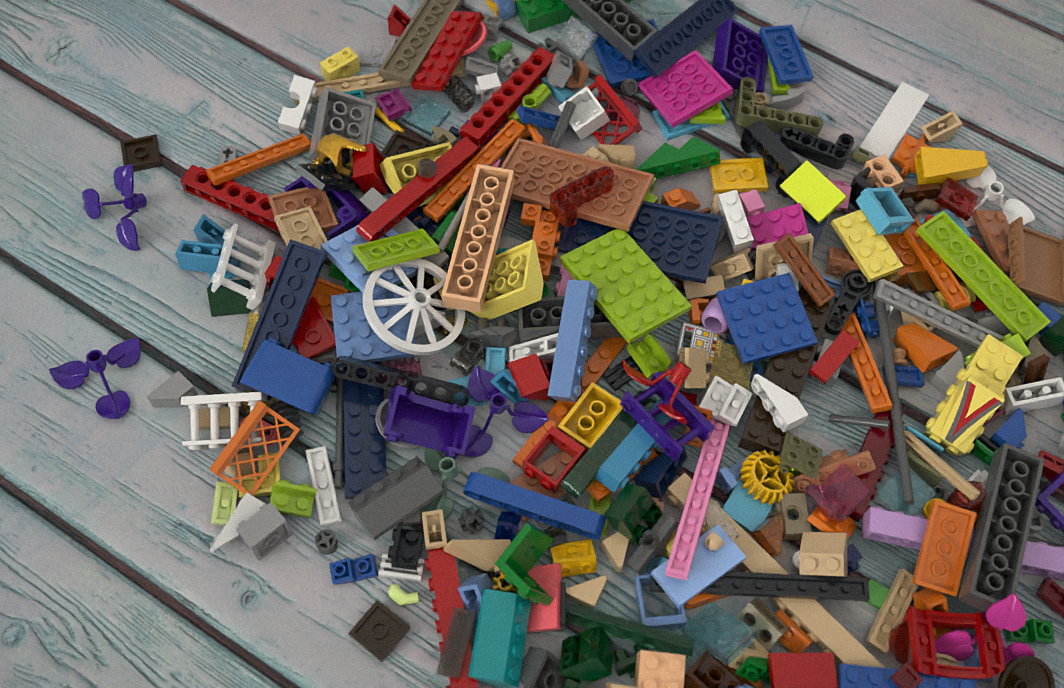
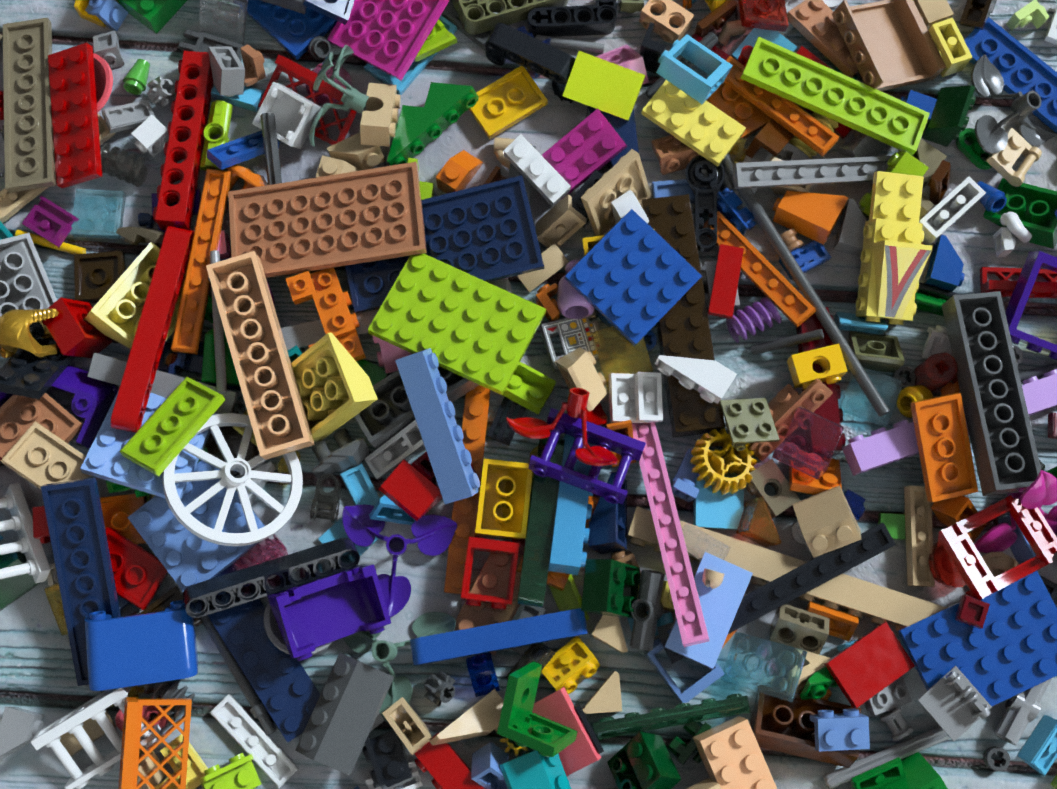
camera: 30 degrees left, 15 degrees up
(427, 168) = (147, 299): clear smoke tile -> none
(569, 197) = (360, 206): clear red beam -> none
(632, 120) = (351, 98): none -> sand green plant
(646, 141) = (381, 115): none -> tan arch
(751, 203) = (540, 133): bright pink brick -> none
(804, 269) = (645, 197): dark orange tile -> none
(842, 393) = (753, 317): none -> medium lavender piece
(883, 441) = (828, 357): none -> yellow brick
(941, 466) = (897, 353): tan axle -> none

